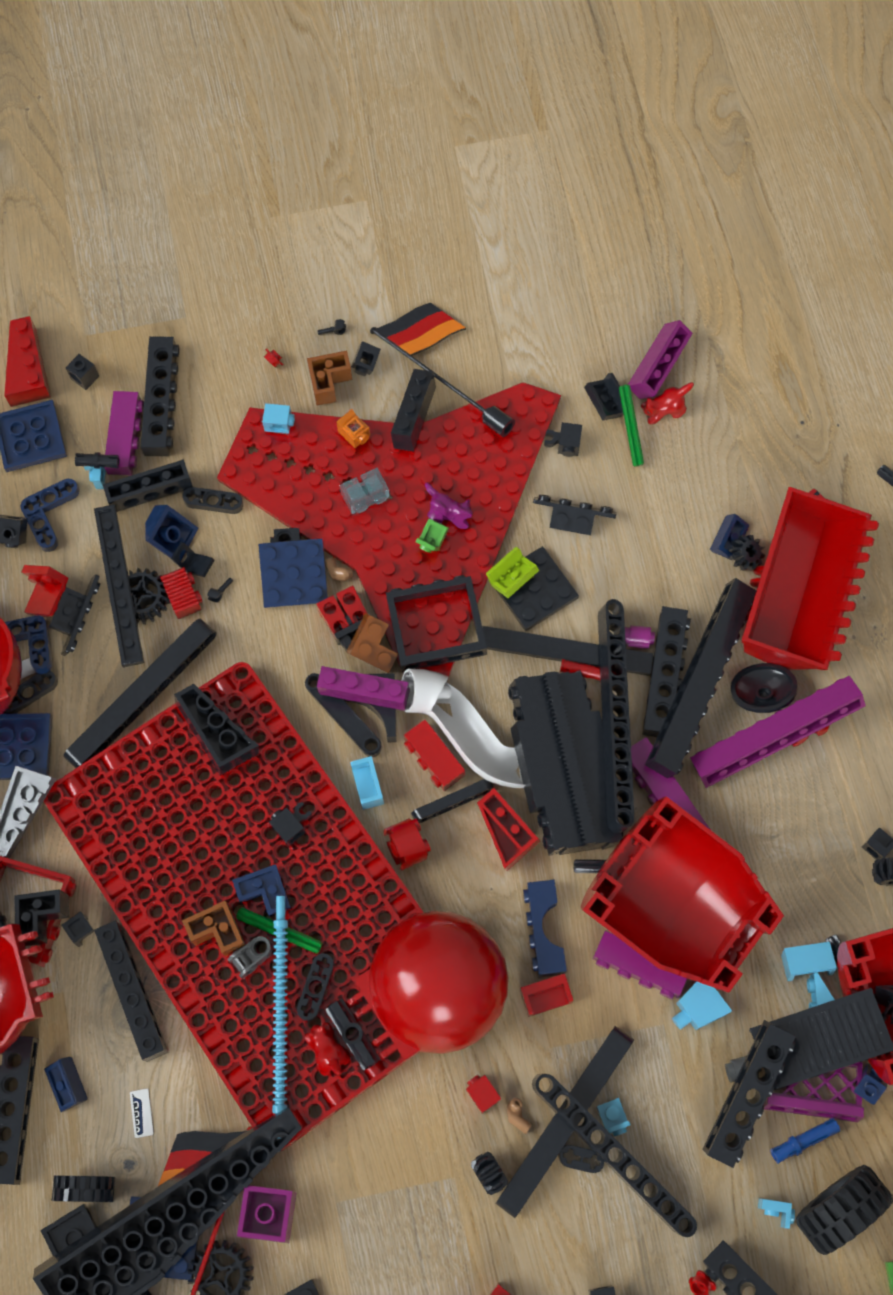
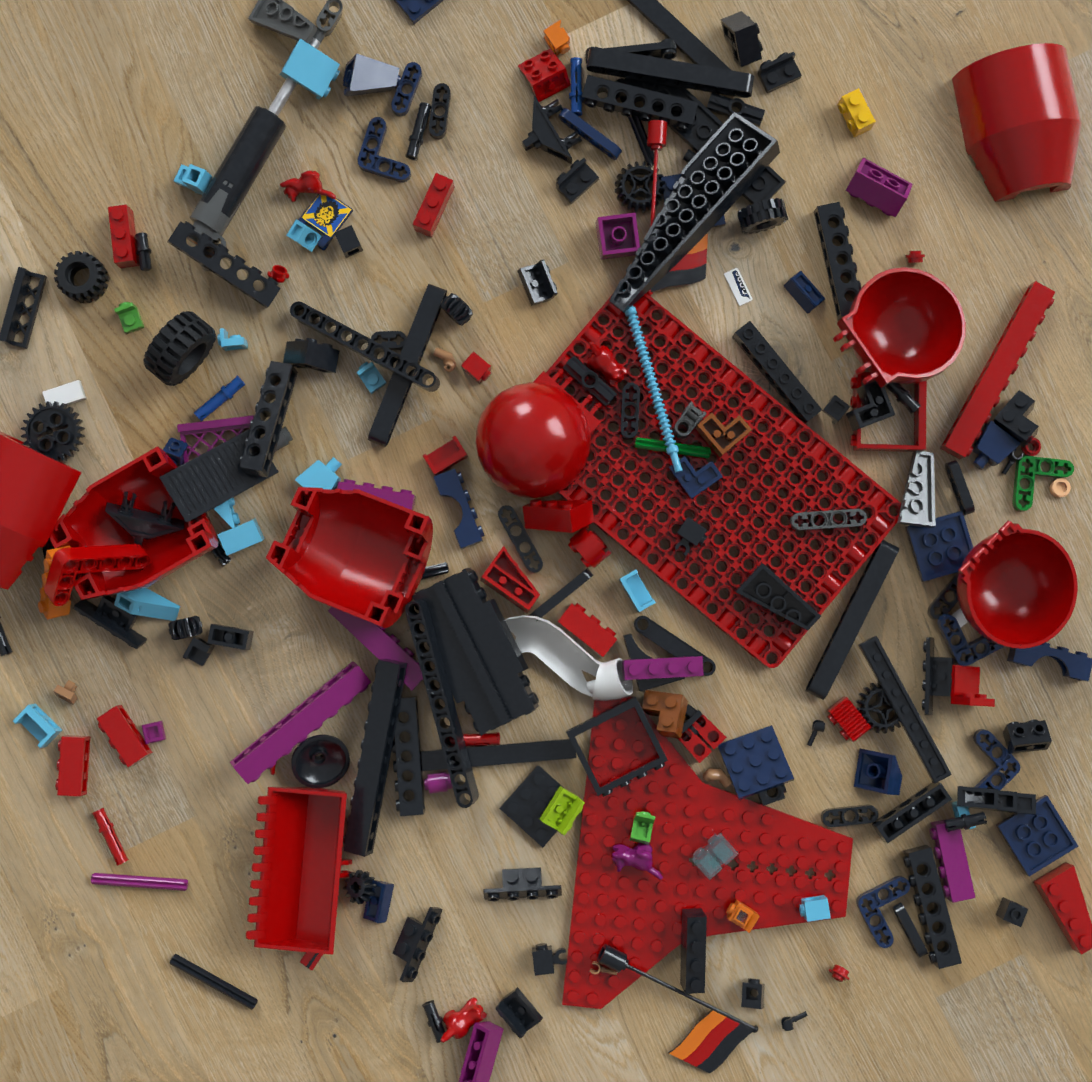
camera: 165 degrees right, 15 degrees up
(57, 475) = (996, 800): none -> black slope
(130, 804) = (828, 519): none -> dark grey beam
(189, 380) = (910, 930): none -> black beam
(194, 562) = (846, 751): black bracket -> none
(215, 413) = (876, 903): none -> dark blue beam
(327, 371) = (786, 969): dark orange brick -> none
(381, 1182) = (538, 283): none -> black bracket
(432, 886) = (558, 515): none -> red wedge
(484, 876) = (517, 540): none -> black beam
(520, 414) = (602, 969): none -> medium nougat hand
(631, 425) = (489, 987): green axle -> none
(682, 1161) = (311, 355): none -> black brick
(695, 410) = (434, 1020): none -> black pin
(700, 488) = (414, 942): none -> black bracket
(841, 848) = (230, 637): none -> black brick

